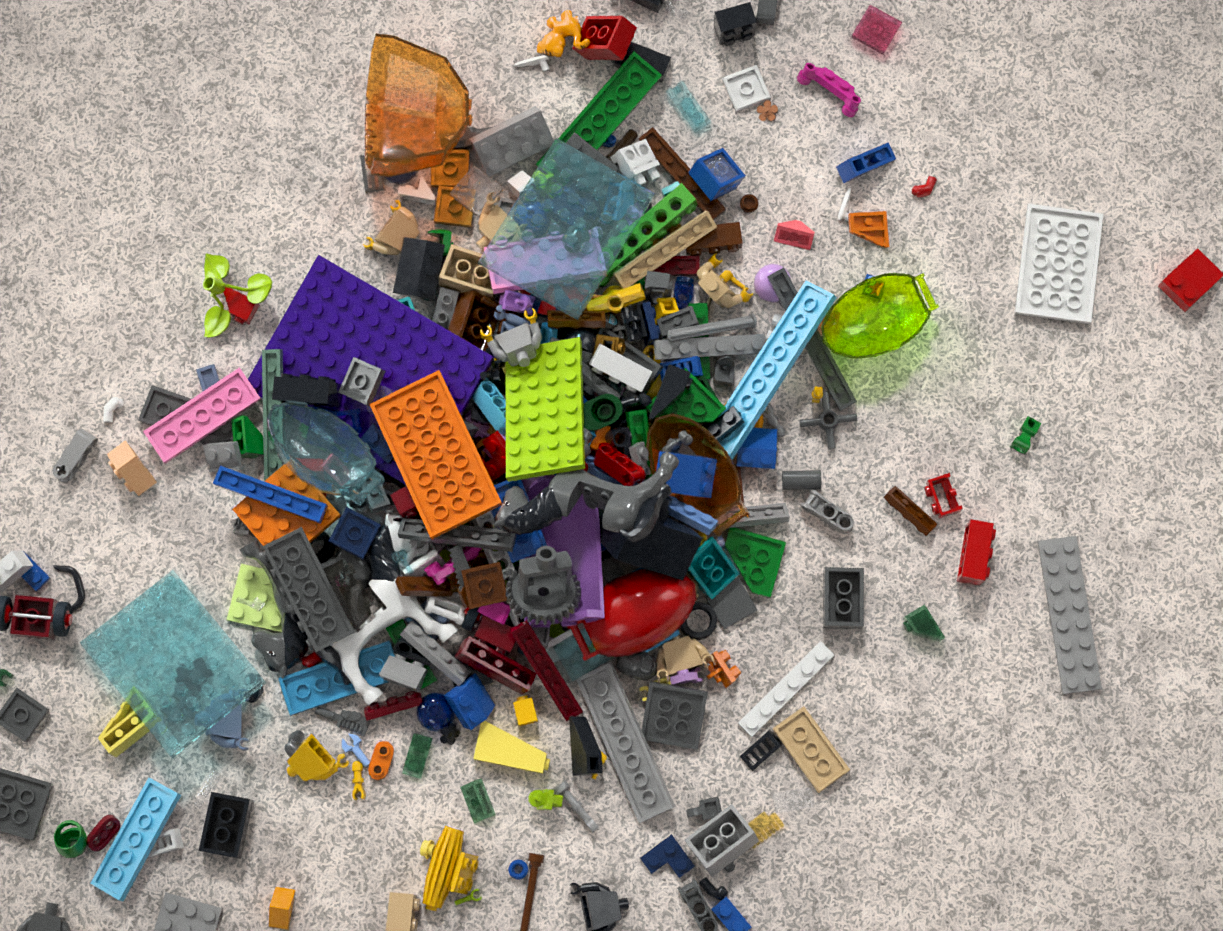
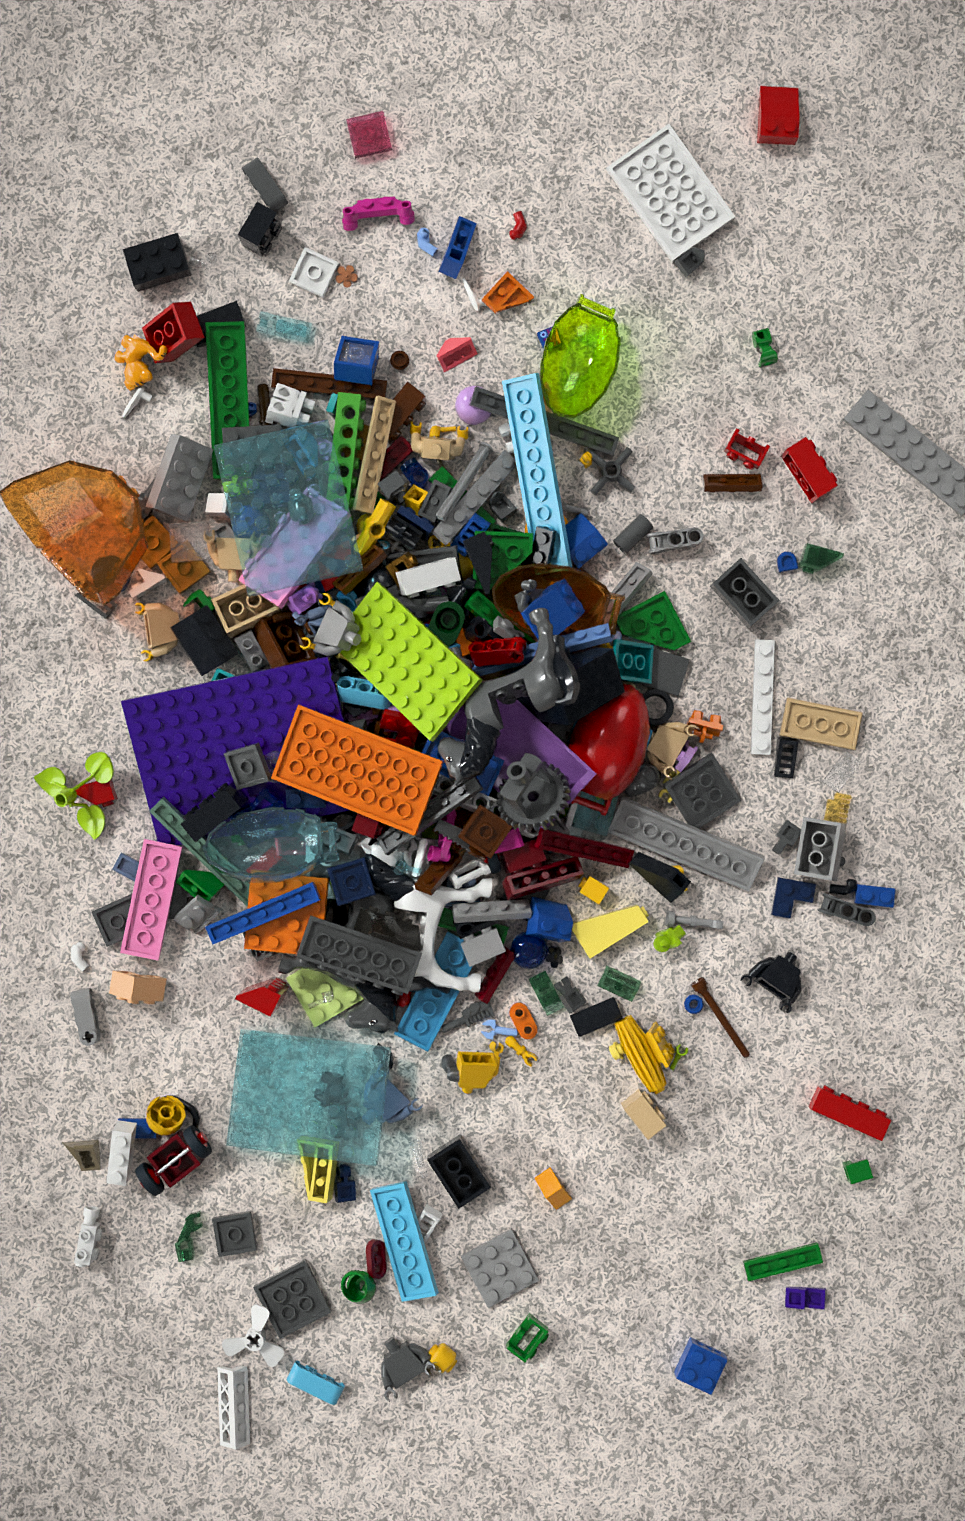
camera: 50 degrees left, 10 degrees up
(58, 579) = (165, 1115): none -> yellow cylinder
(131, 759) = (344, 1189): none -> dark blue plate
(214, 558) = (264, 995): none -> red slope
(432, 775) = (570, 996): none -> dark grey plate
(437, 808) = (596, 1017): none -> black piece
(845, 137) = (424, 243): none -> light blue arm
(897, 606) = (786, 561): none -> blue tile
(1028, 323) = (690, 260): none -> dark grey plate

